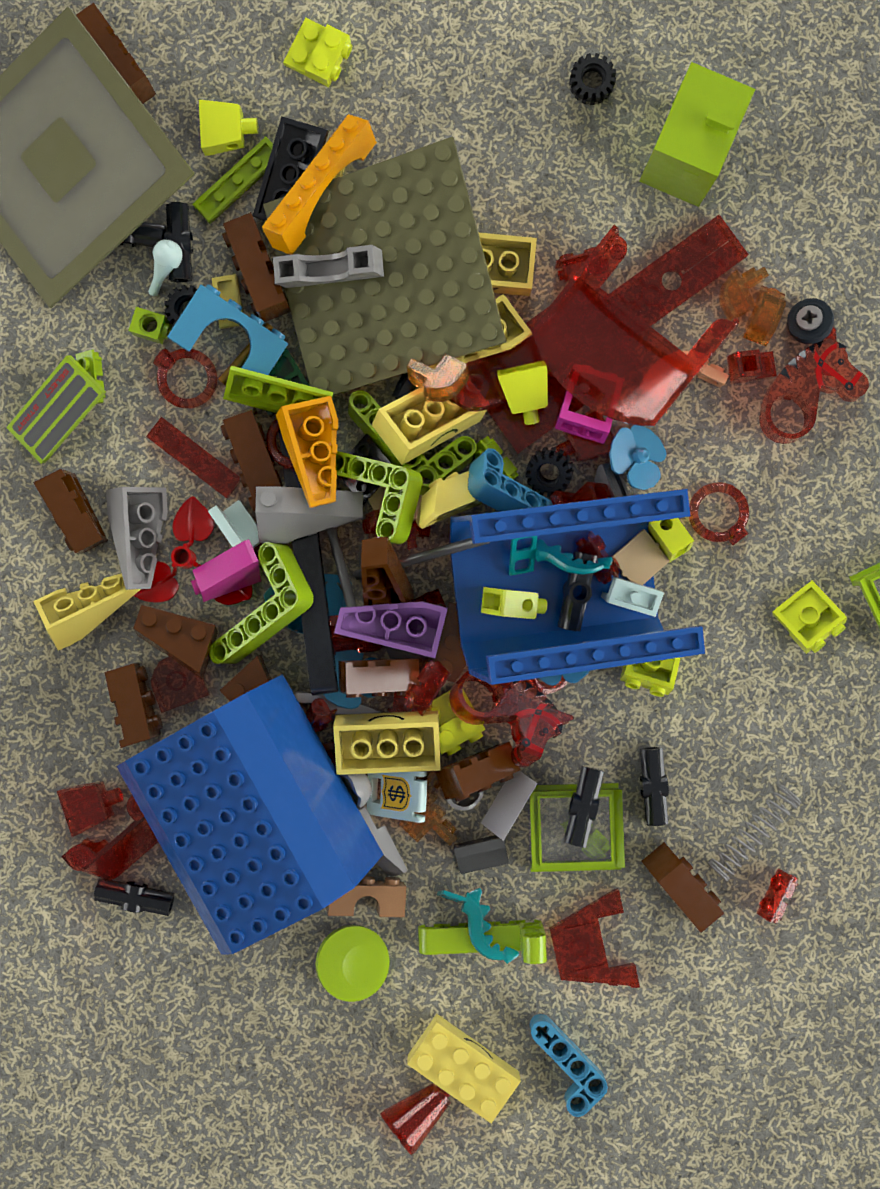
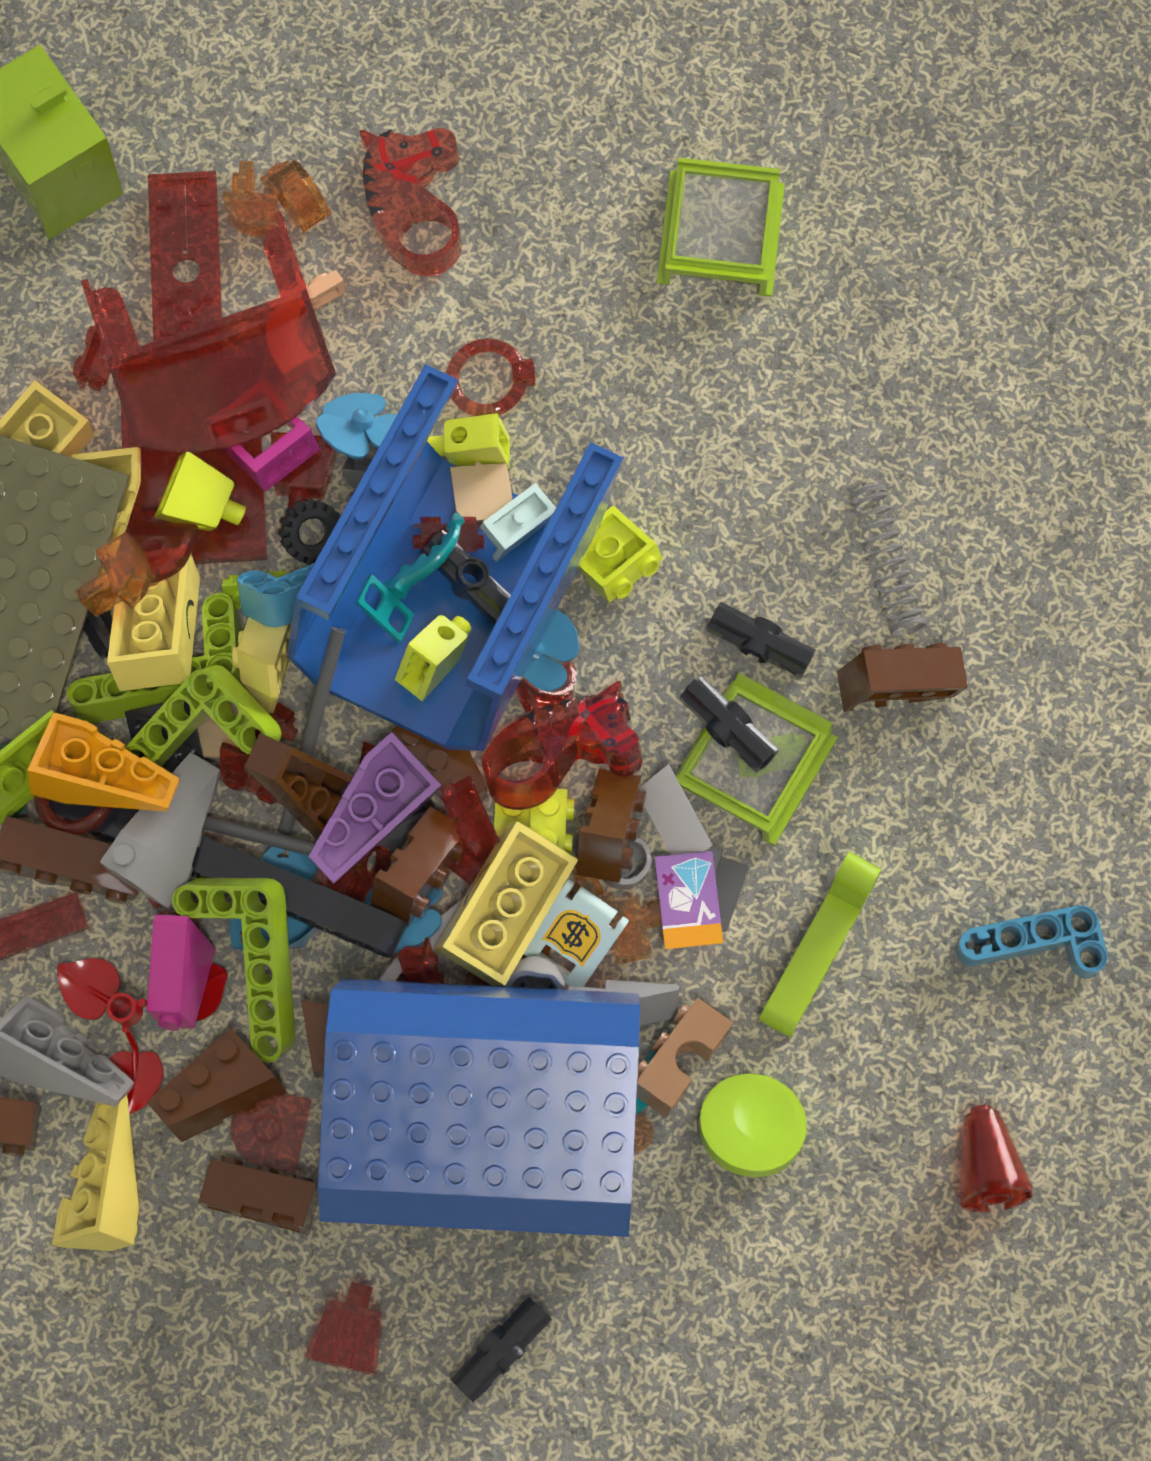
camera: 55 degrees left, 15 degrees down
(114, 858) = (436, 1342): clear red windscreen -> none
(236, 524) = (125, 933): light aqua panel -> none
(462, 845) = (688, 900): none -> sticker
(464, 1068) = (965, 1069): light yellow brick -> none
(478, 926) = (796, 941): teal piece -> none
(581, 948) = (903, 841): clear red wing -> none
(750, 366) = (341, 242): clear red brick -> none
(772, 905) = (973, 568): clear red hinge -> none
(810, 617) = (675, 349): neon yellow plate -> none
(814, 329) = (347, 155): black wheel -> none

